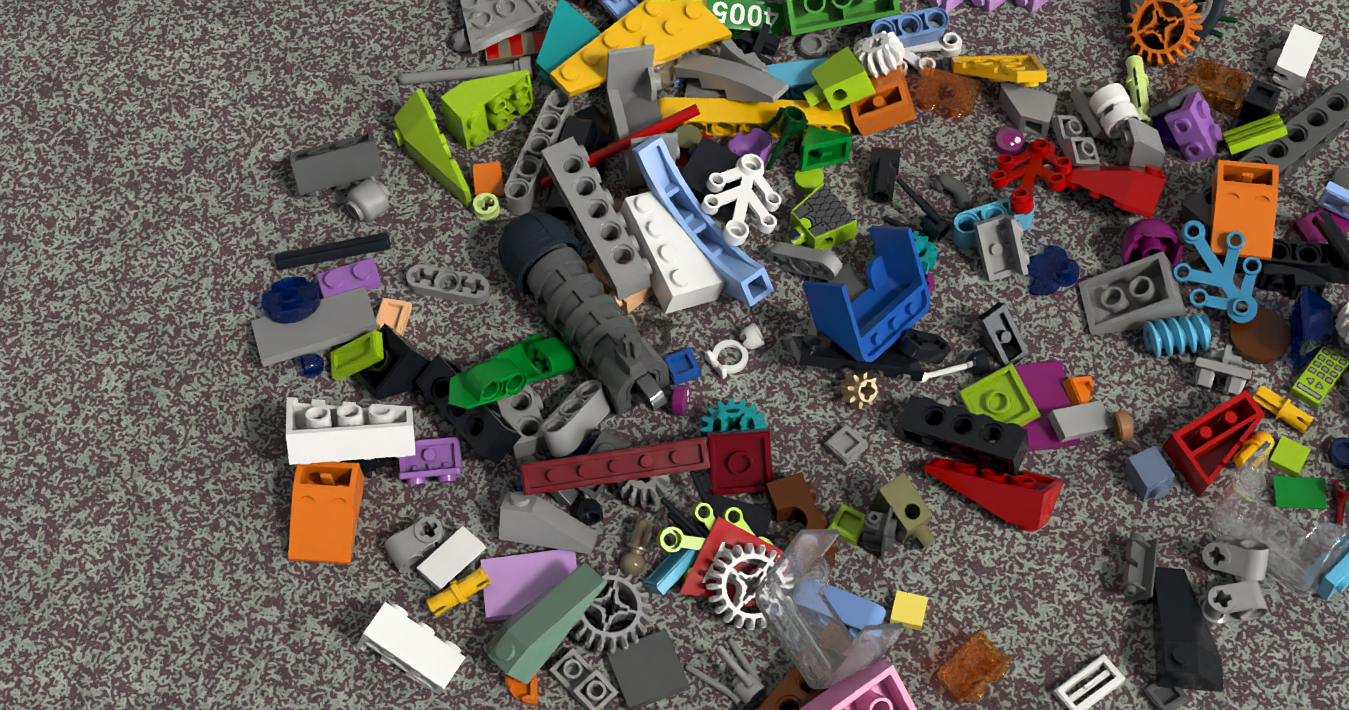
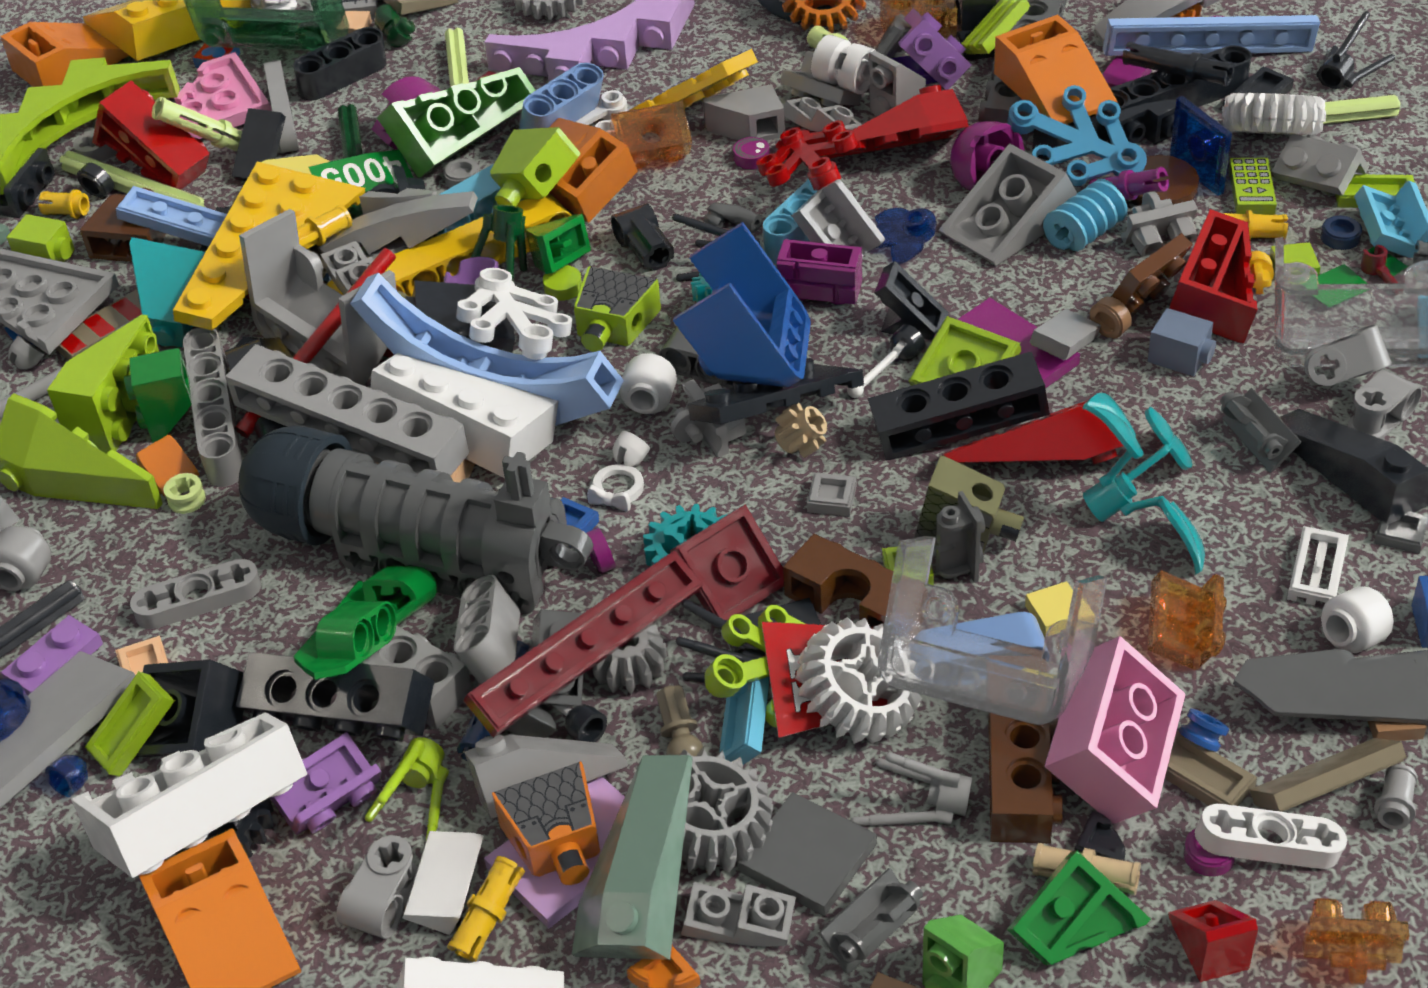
camera: 35 degrees left, 15 degrees down
(485, 480) = (416, 769): none -> lime plant
(508, 128) = (161, 389): none -> green slope
(523, 565) = (551, 823): none -> torso
(677, 56) = (318, 229): none -> yellow axle
(678, 96) = (345, 265): none -> light grey slope
(791, 297) = (648, 383): none -> white head
(804, 260) = (640, 329): light grey beam -> none
(880, 53) = (559, 111): white gear -> none
(923, 346) = (836, 352): black beam -> none
(964, 275) = (821, 270): none -> magenta brick
(1012, 526) = (1116, 492): none -> teal plant
(1079, 389) = (1033, 310): orange tile -> none
(1172, 415) = (1151, 275): none -> reddish brown plate
(1227, 329) = (1137, 183): none -> magenta pin

